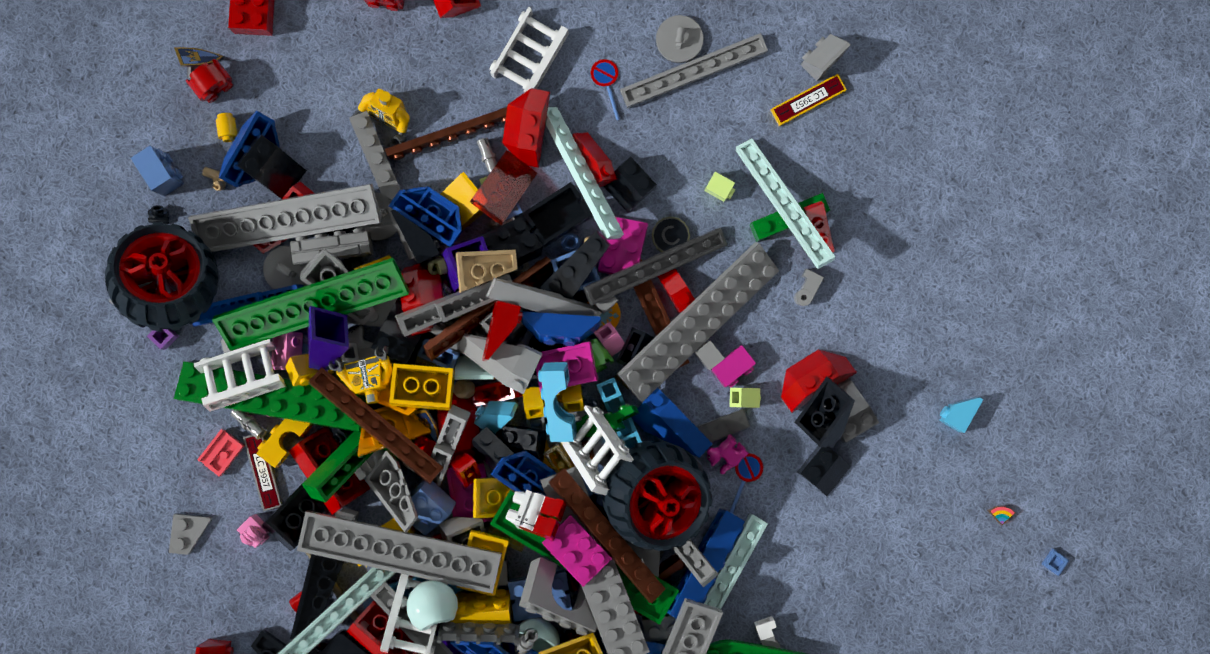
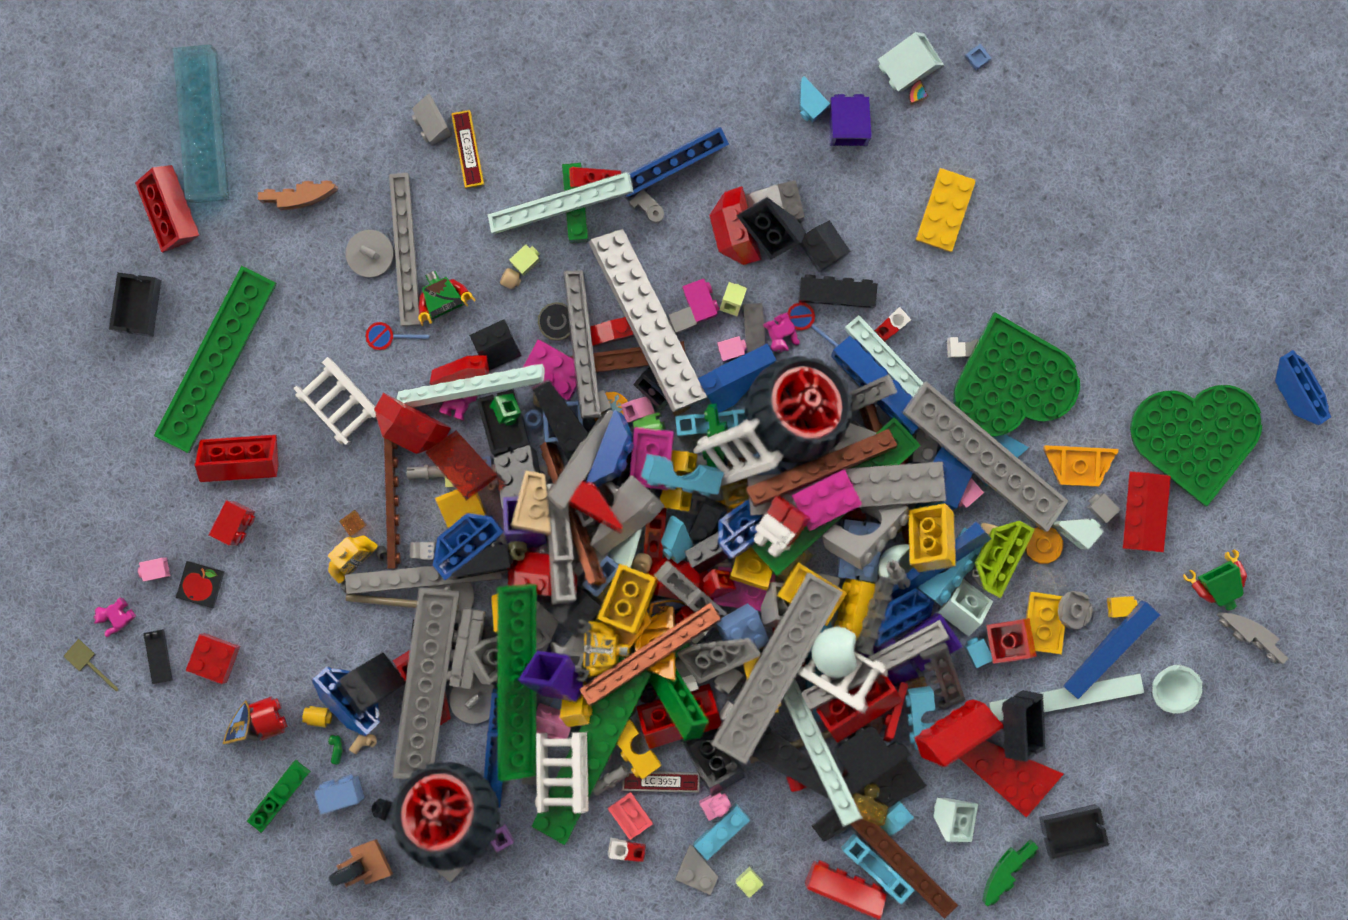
camera: 70 degrees left, 0 degrees up
(100, 215) = (369, 861): none -> nougat plate
(140, 114) = (278, 796): none -> green slope
(186, 458) = (626, 850): none -> leg
(190, 586) = (749, 882): none -> yellowish green brick
(202, 156) = (337, 749): none -> green arm
(220, 539) = (721, 832): none -> medium azure arch
(354, 156) = (383, 601): none -> dark tan bar
(375, 506) = (727, 680): none -> light grey brick
(412, 176) = (423, 550): none -> light grey leg
(419, 103) = (353, 523): none -> clear orange plate
(561, 169) = (459, 405): none -> dark pink animal
(574, 210) = (506, 409): none -> green brick
(658, 118) = (441, 297): none -> torso
(696, 411) = (731, 348): none -> bright pink brick
(697, 179) = (510, 278): none -> tan piece
(769, 559) = (892, 324): none -> leg
(783, 496) = (838, 292): none -> black brick
(862, 302) = (677, 159): none -> blue brick
(896, 576) = (945, 210): none -> yellow plate
(953, 457) = (850, 120): none -> dark purple slope
(1029, 497) = (910, 61): none -> light aqua slope

